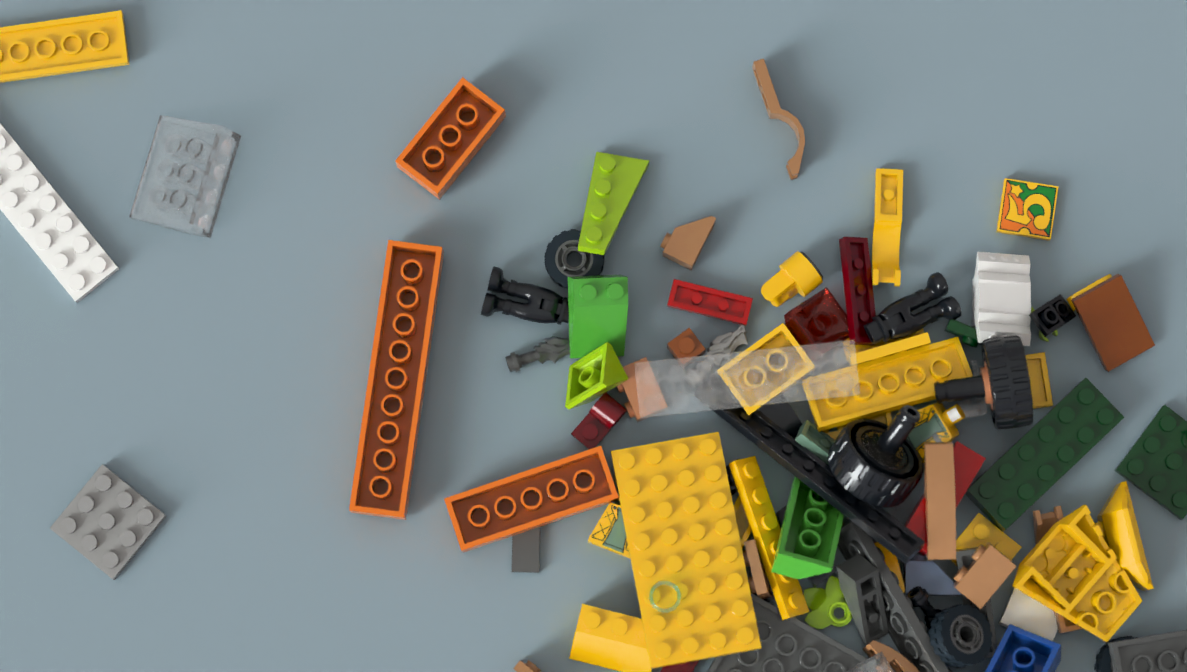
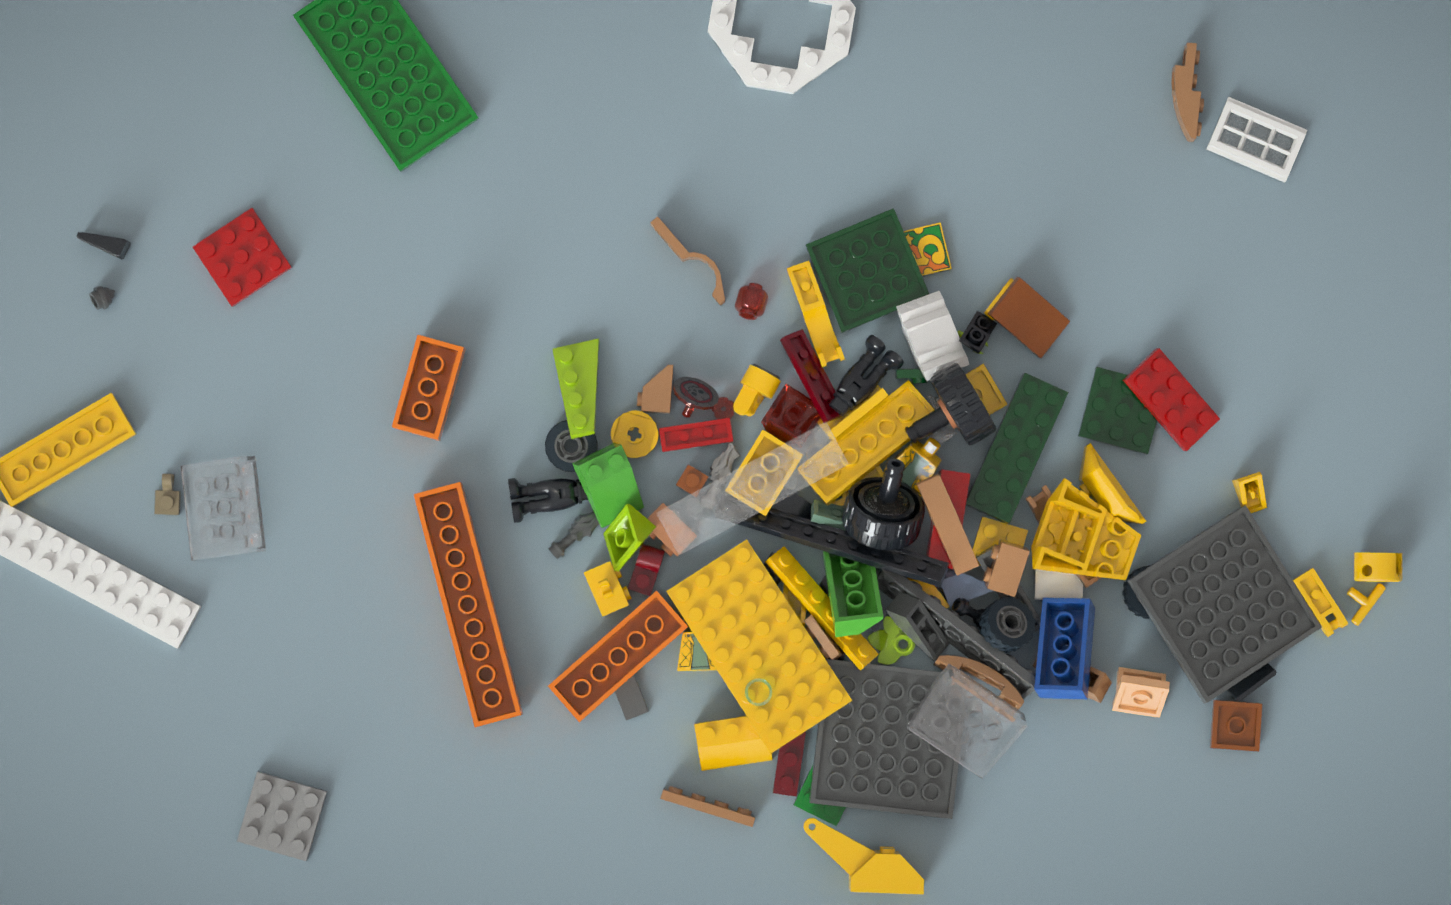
camera: 30 degrees left, 5 degrees up
(132, 144) = (167, 500): none -> dark tan plate
(549, 424) = (607, 589): none -> yellow brick
(661, 274) = (647, 427): none -> yellow plate
(725, 258) = (695, 394): none -> shield
(752, 280) = (724, 402): none -> clear red plate
(825, 187) = (751, 301): none -> clear red head
(960, 204) = (867, 270): none -> dark green plate

